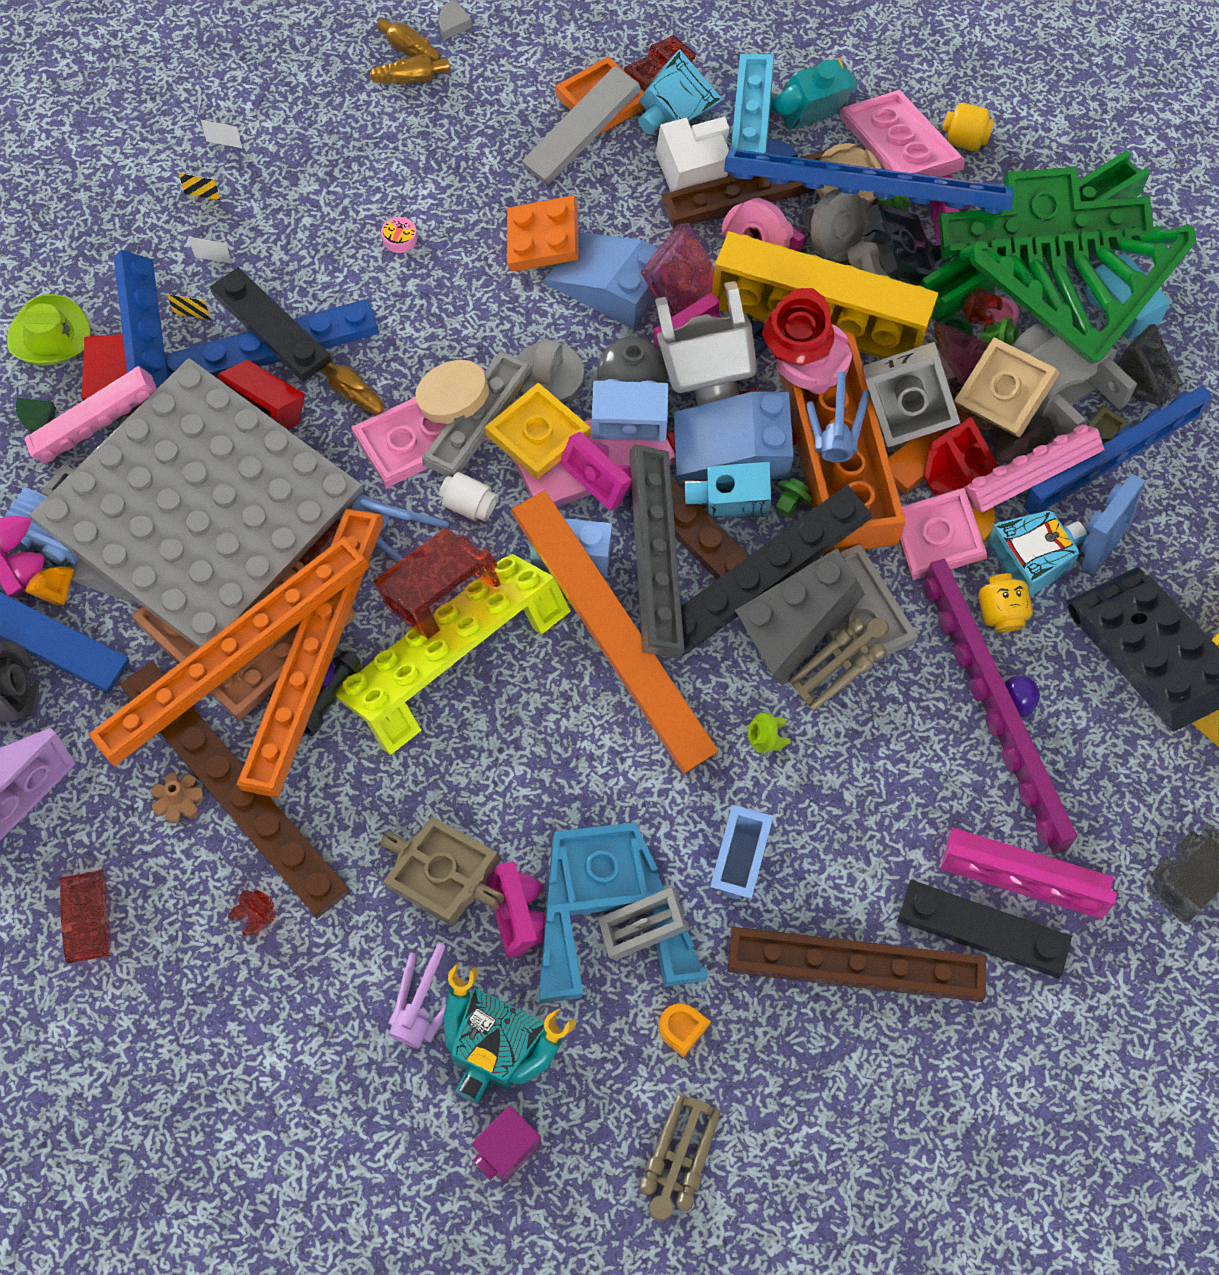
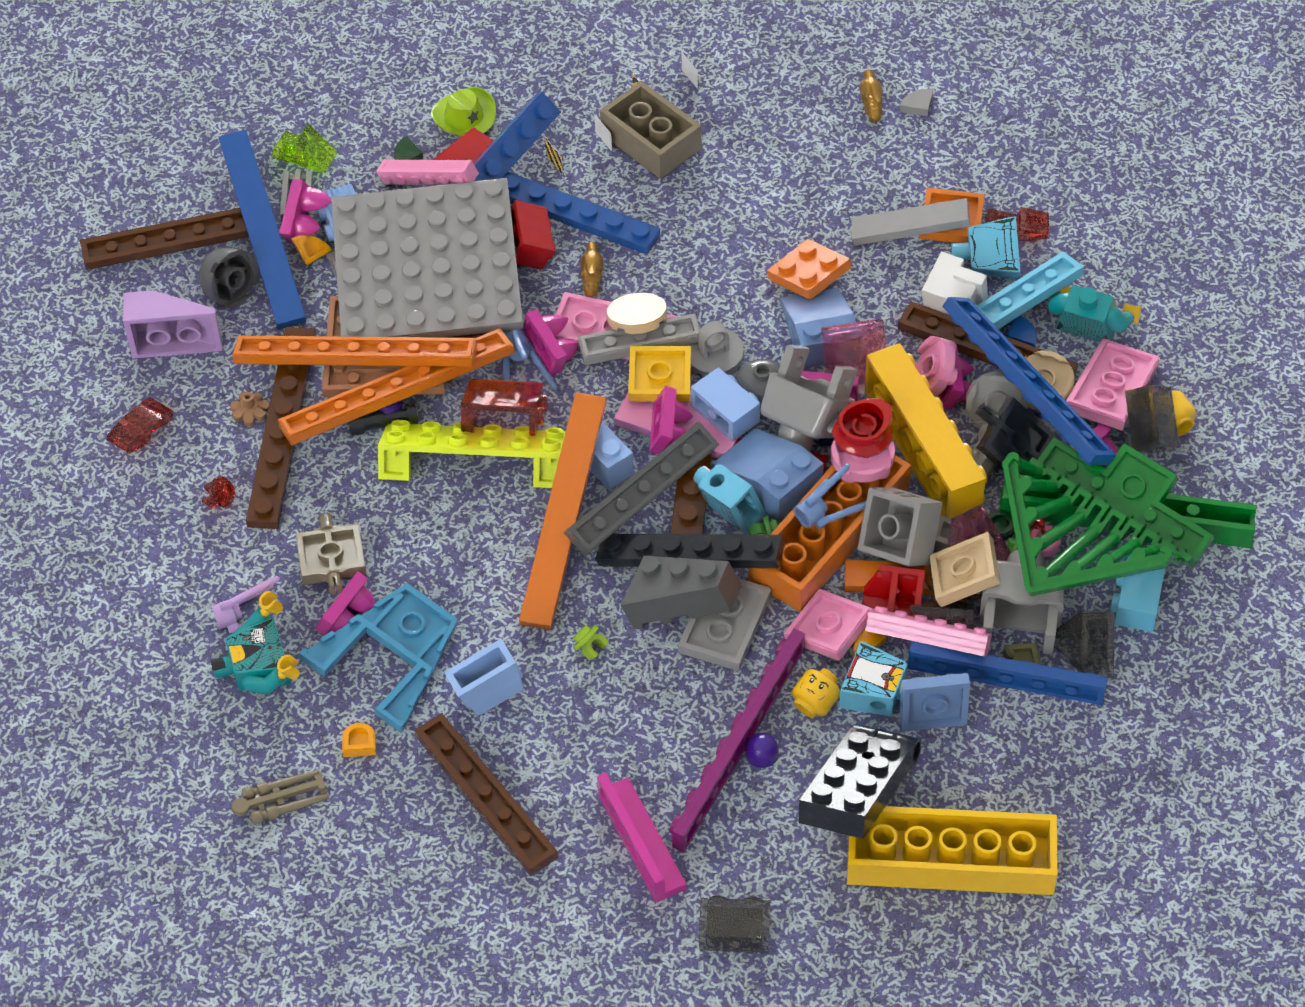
camera: 50 degrees right, 10 degrees down
(257, 211) = (651, 129): none -> dark tan brick
(270, 324) = (582, 198): black plate -> none
(387, 485) = (541, 334): none -> dark pink tile
(399, 234) = (725, 206): tile -> none
(410, 70) = (854, 115): pearl gold piece -> none
(468, 497) = (580, 377): white brick -> none
(504, 1145) = (203, 707): magenta brick -> none
(675, 912) = (394, 673): light grey tile -> none
(876, 628) = (674, 631): dark tan piece -> none
(975, 141) = (1152, 419): none -> clear smoke brick
(985, 929) = (580, 844): black plate -> none

